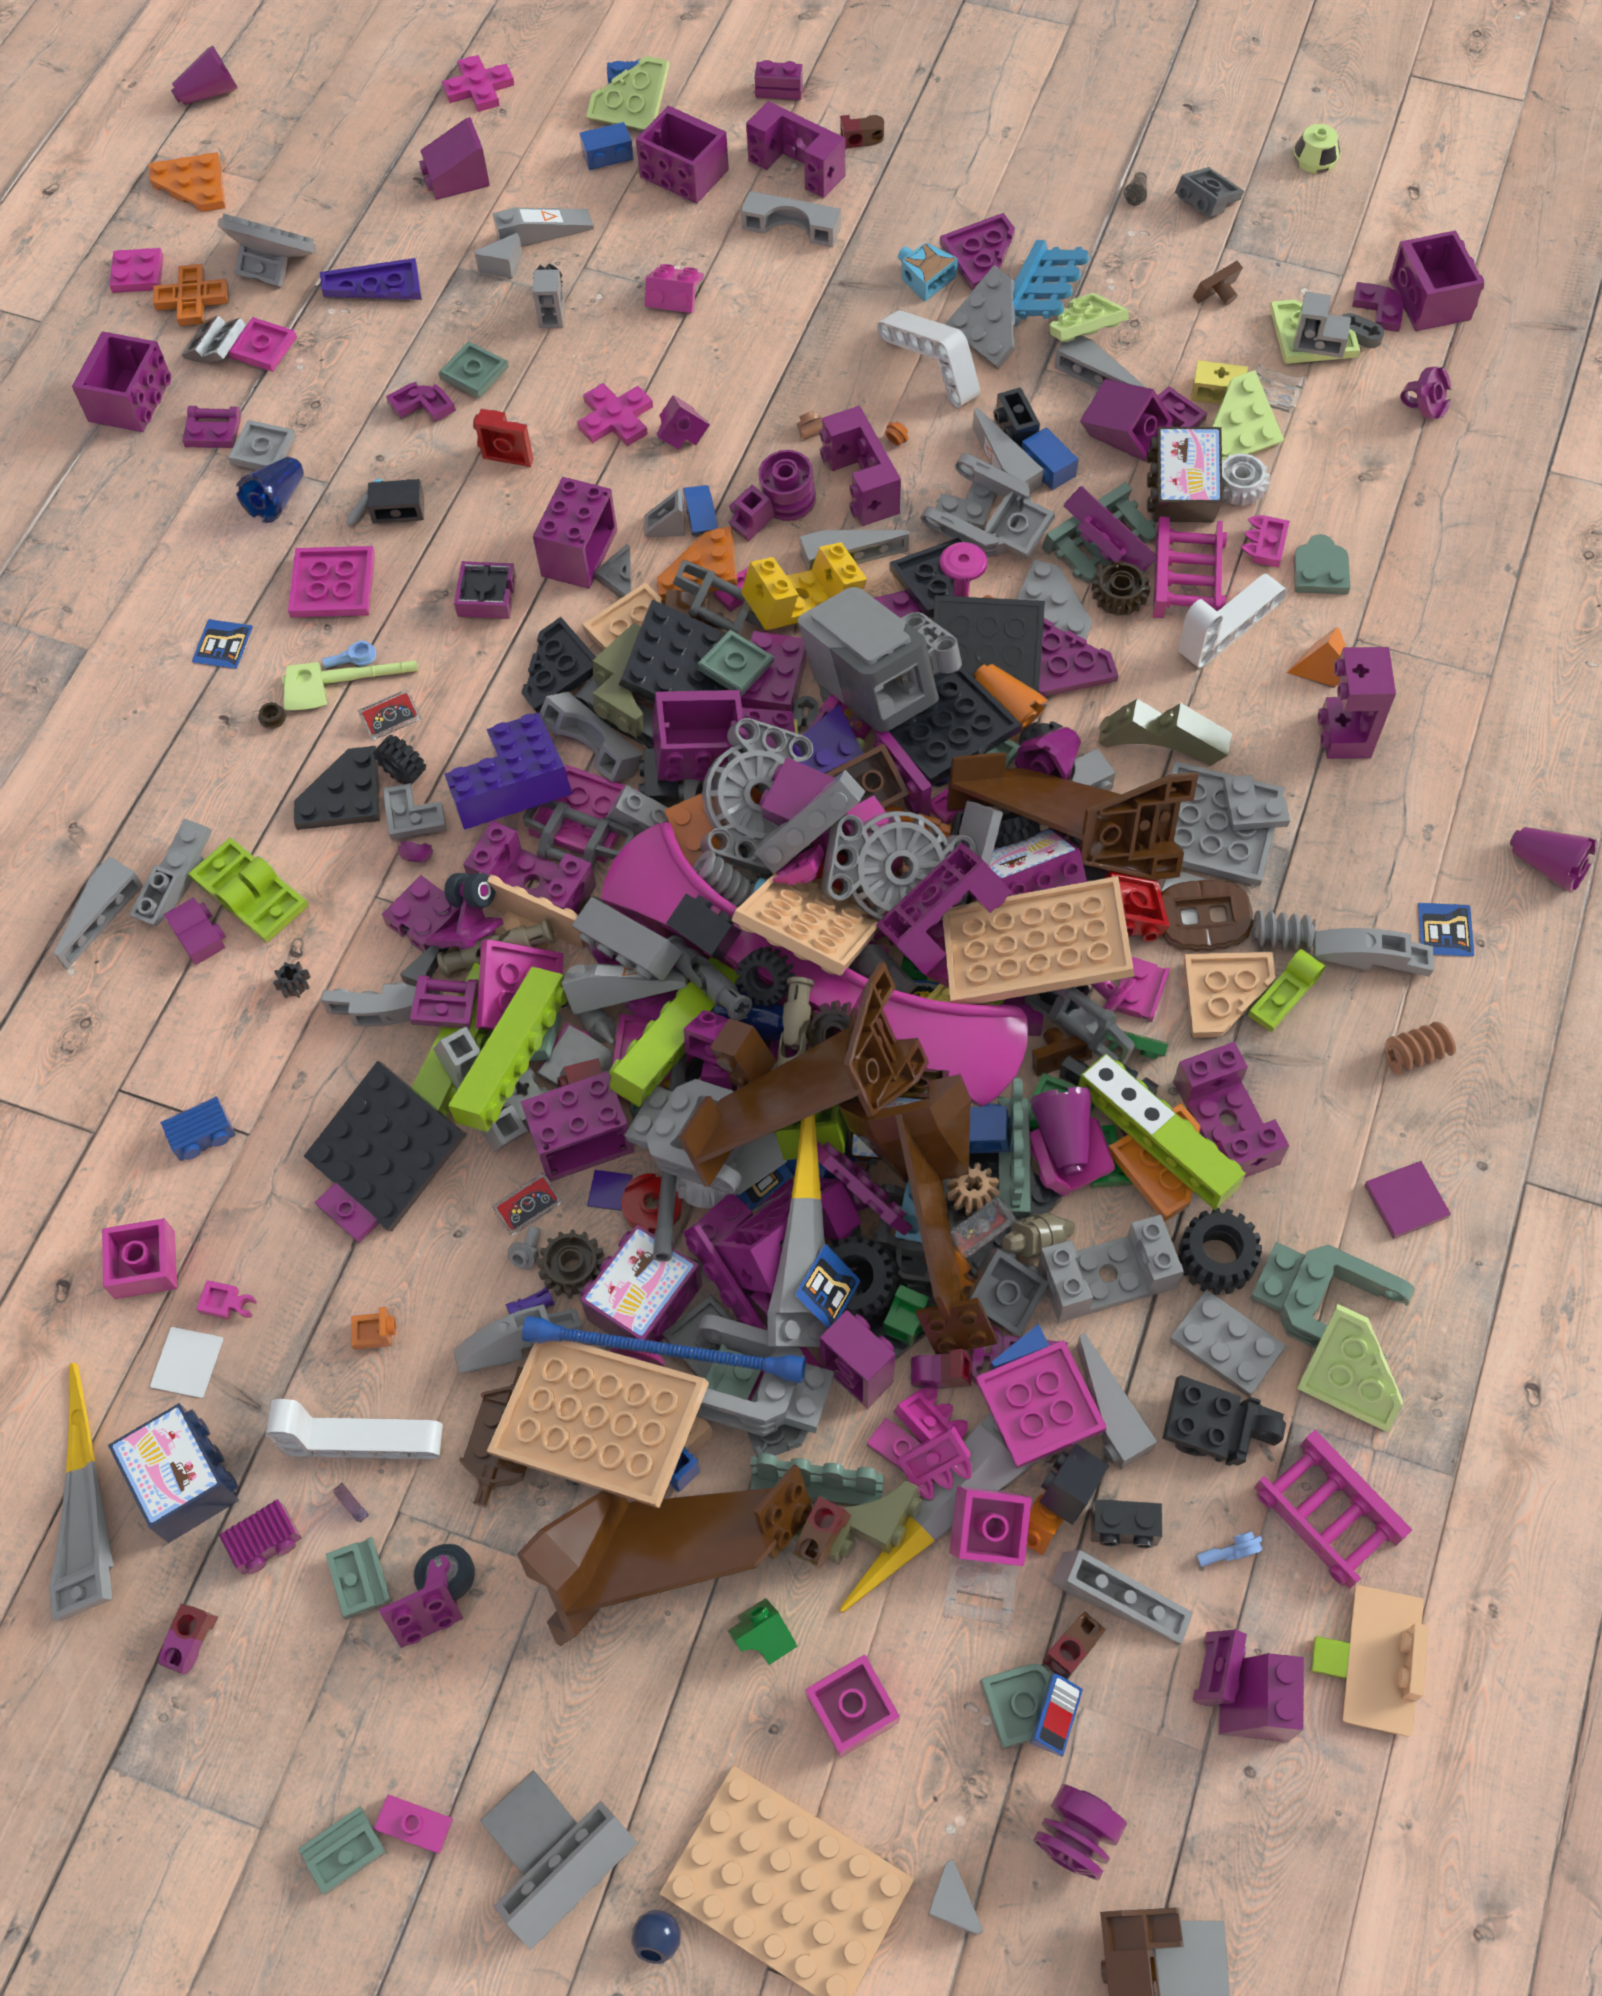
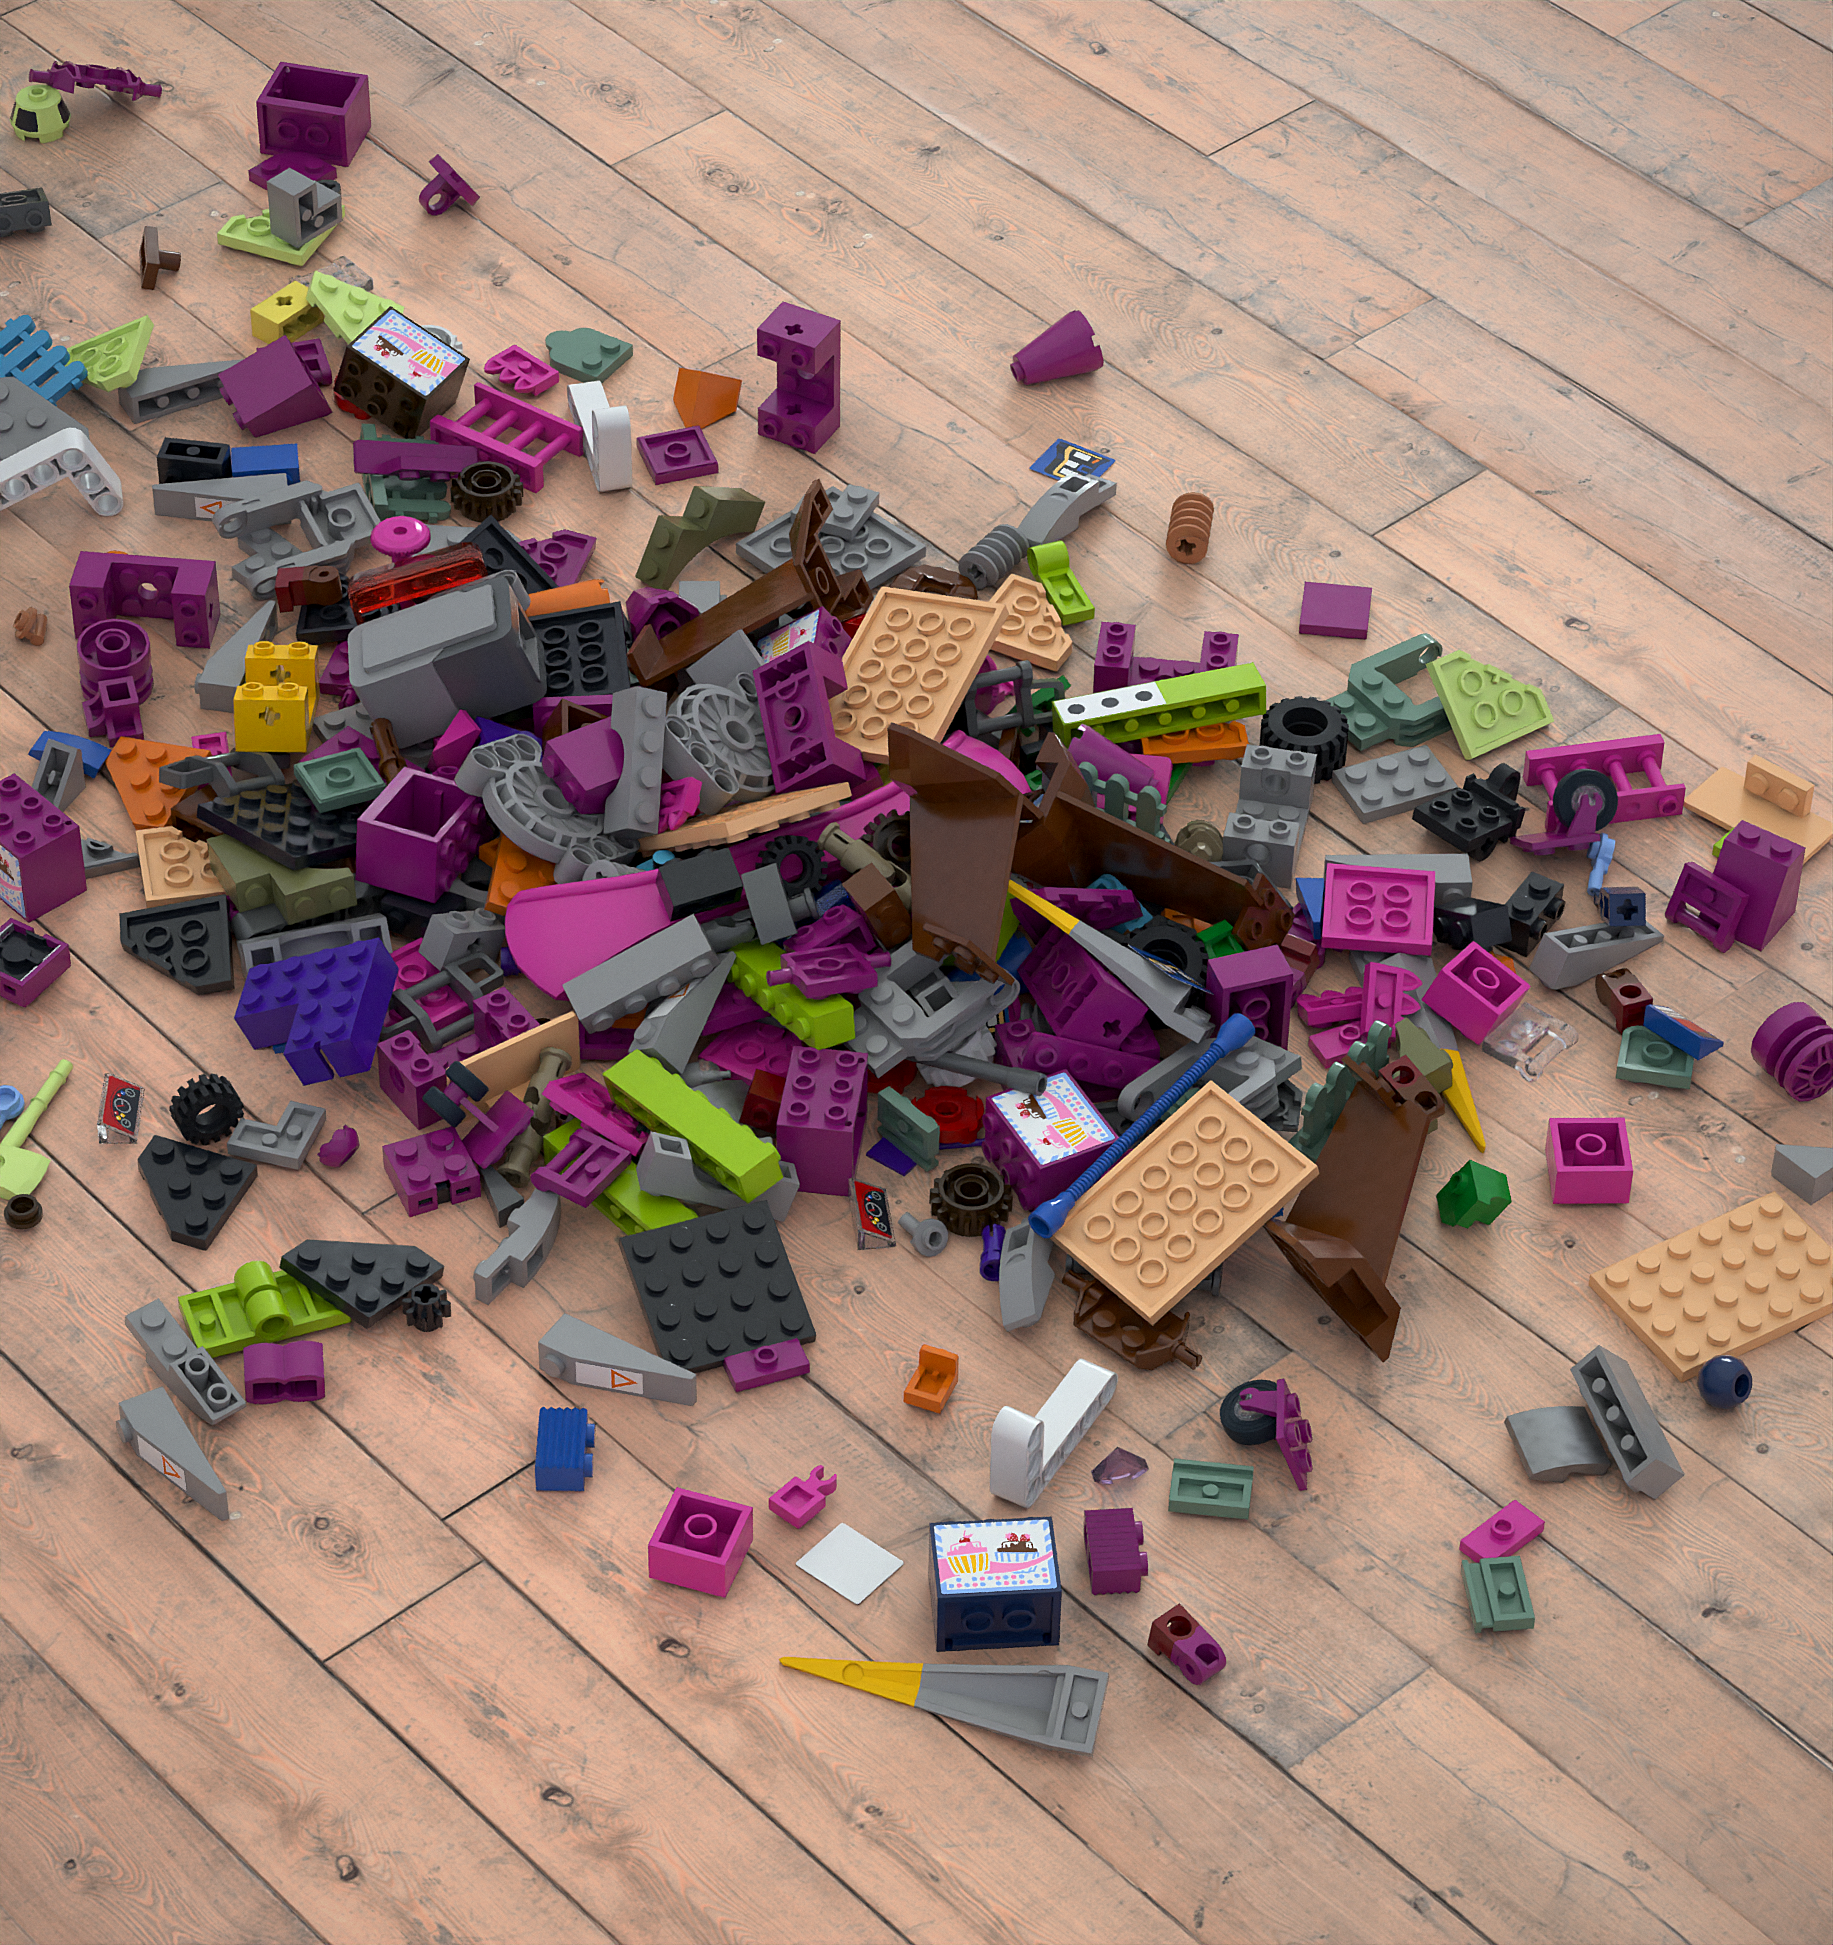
camera: 65 degrees left, 20 degrees down
(293, 1098) = (604, 1362): none -> light grey slope
(298, 928) = (361, 1277): none -> black plate
(612, 1186) = (908, 1128): none -> sand green plate
(671, 1055) = (829, 970): none -> magenta plate
(712, 976) = (769, 904): none -> dark grey slope
(796, 662) = (387, 749): none -> reddish brown pin
(812, 706) = (455, 742): none -> dark pink slope
(915, 584) = (415, 577): none -> clear red windscreen
(930, 538) = (307, 586): none -> leg
(1174, 1593) = (1621, 906): none -> dark blue piece
(1254, 677) = (677, 455): none -> magenta tile
(1263, 1506) = (1583, 804): none -> plate
(1370, 153) = (86, 76): none -> magenta plate

